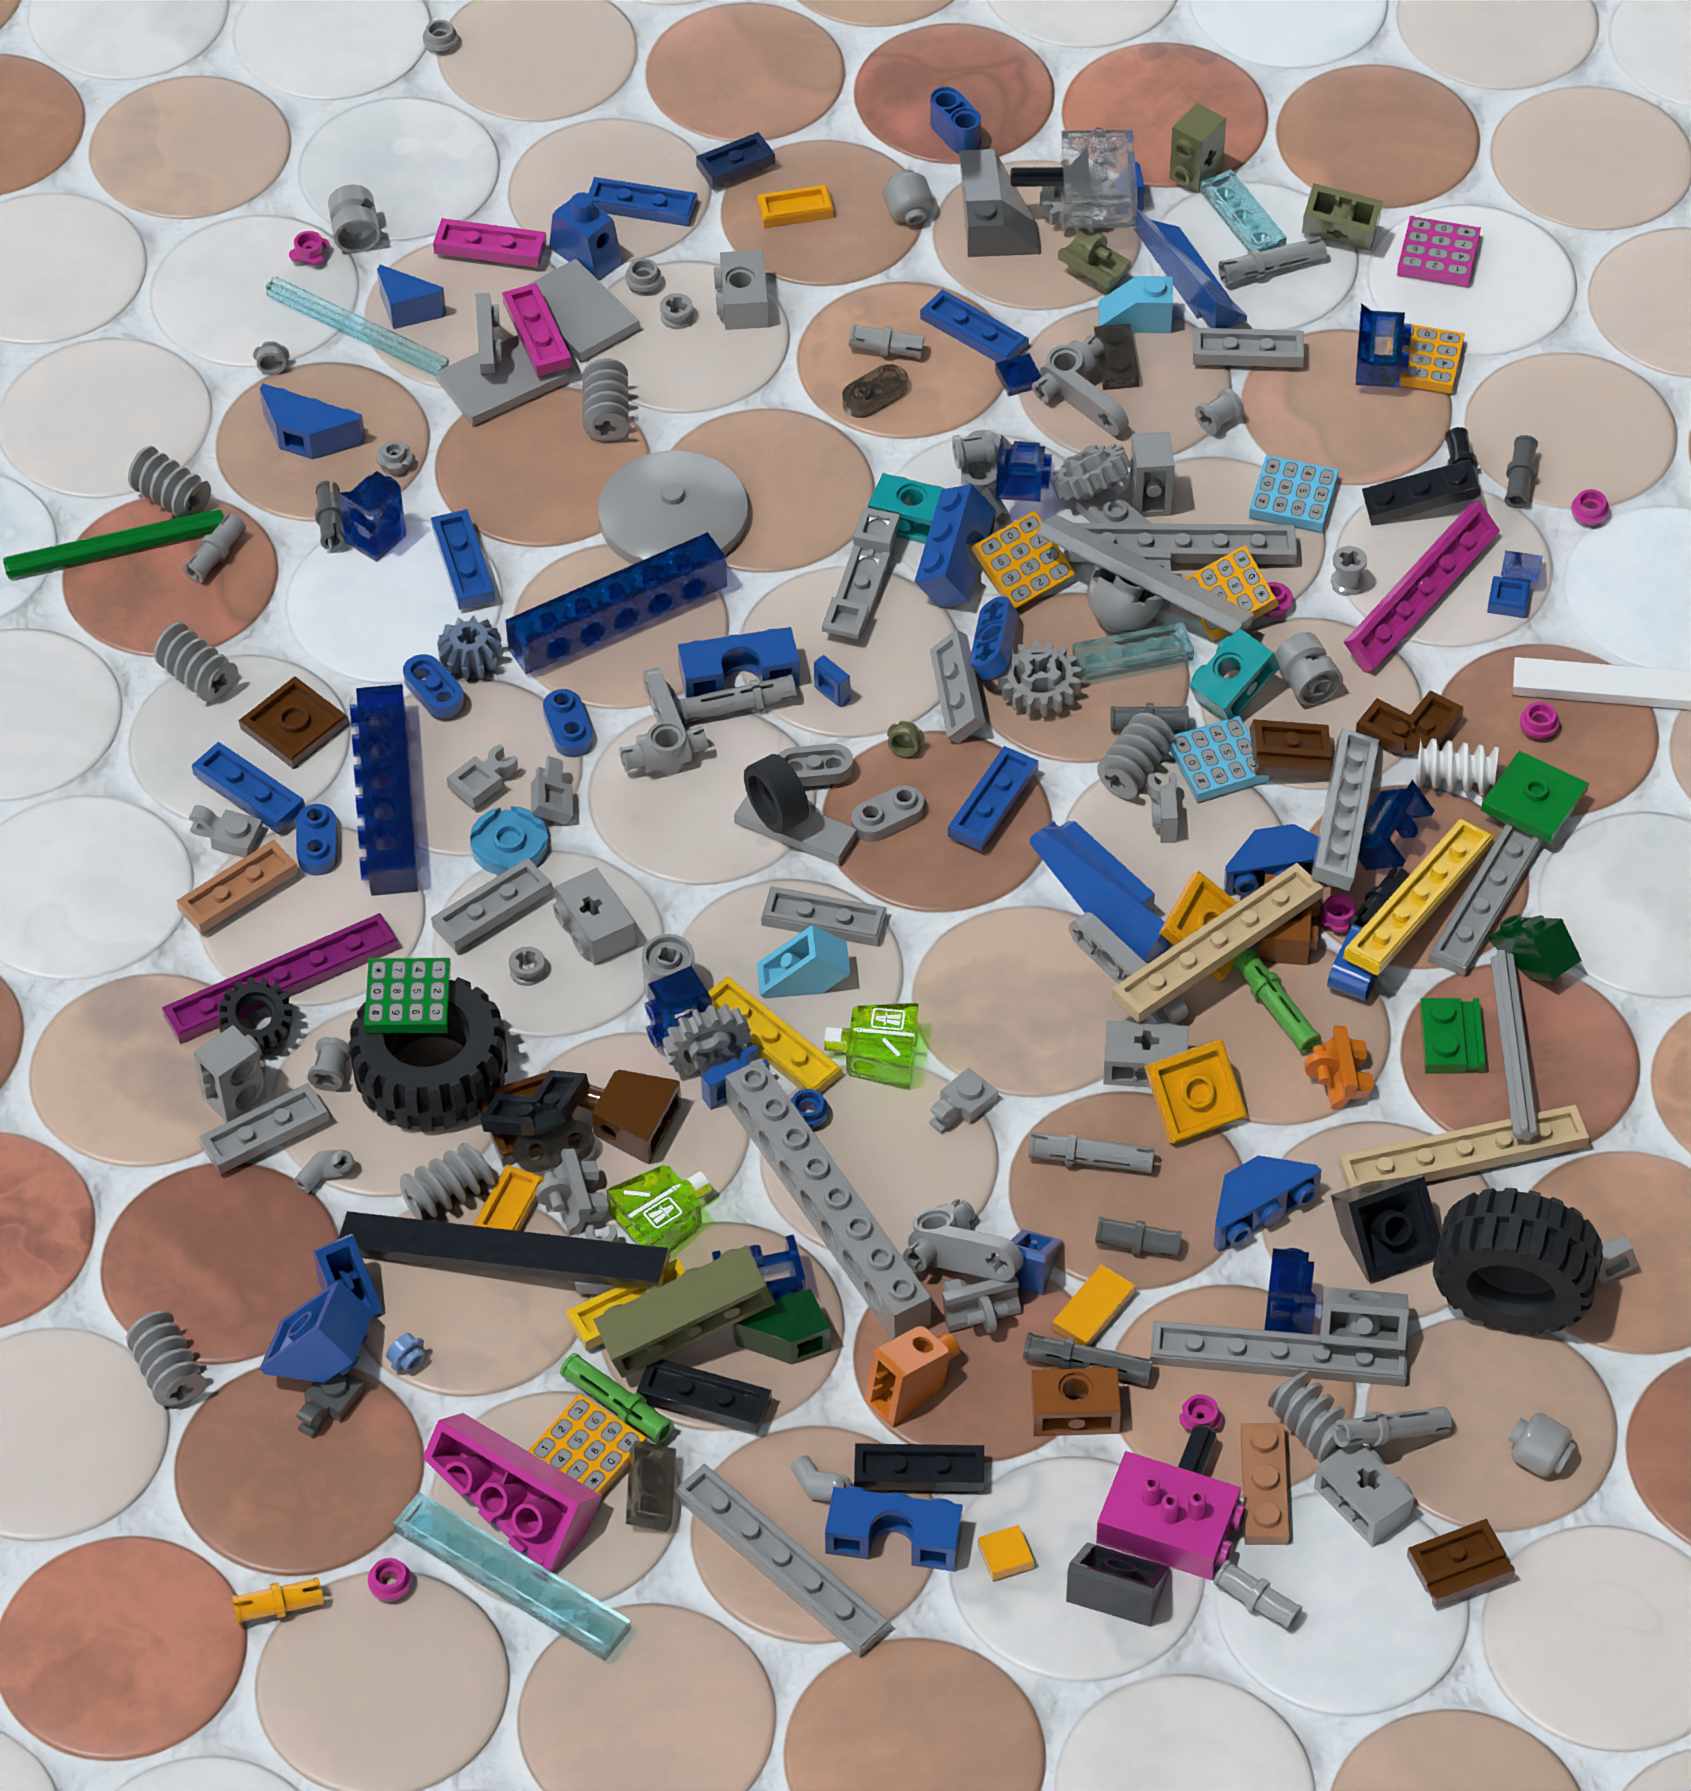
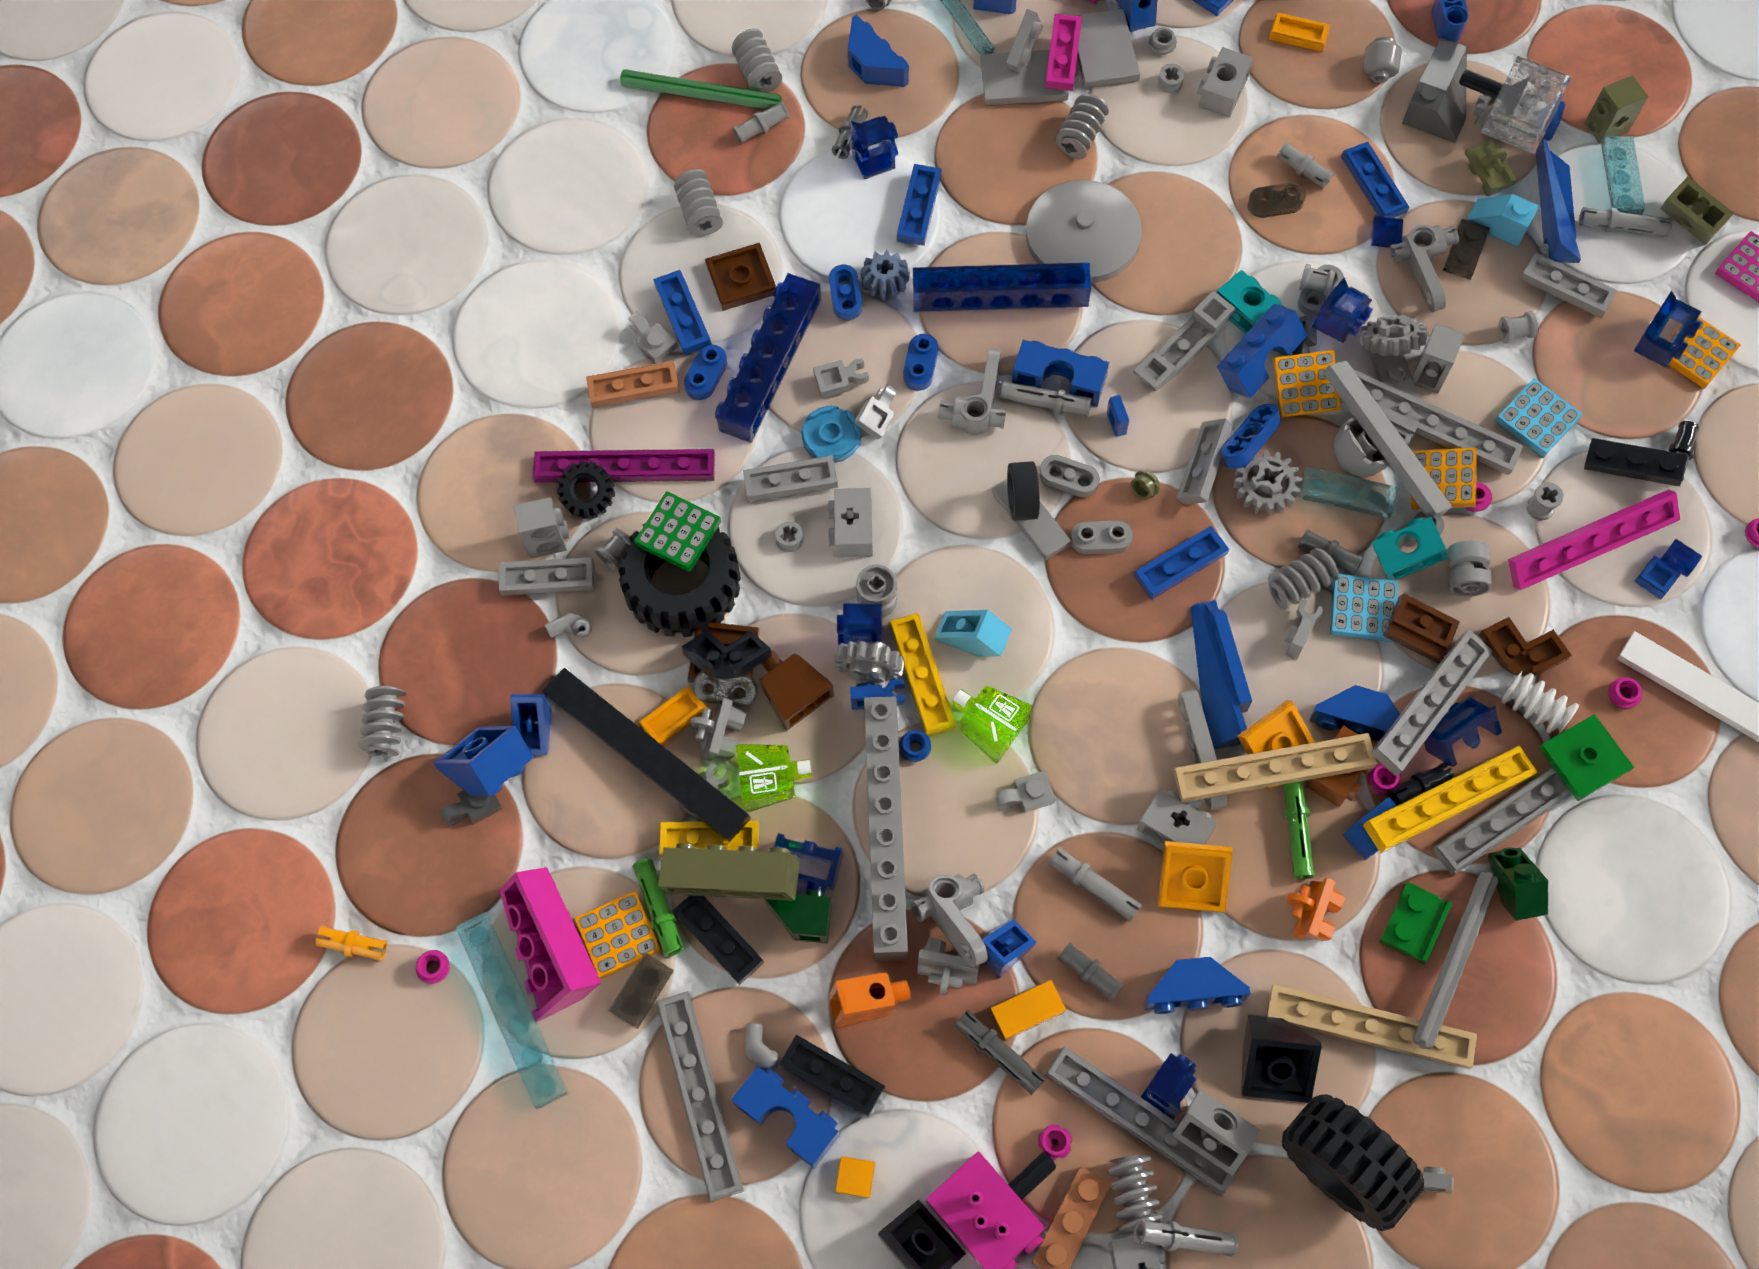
camera: 30 degrees right, 15 degrees up
(394, 458) = (920, 112): light grey plate -> none
(406, 1353) = (540, 797): medium blue plate -> none
(445, 1179) = (638, 680): light grey piece -> none
(840, 917) = (1012, 597): light grey tile -> none
(1060, 1416) = (949, 1083): dark orange brick -> none
(1521, 471) = (1723, 478): dark grey pin -> none

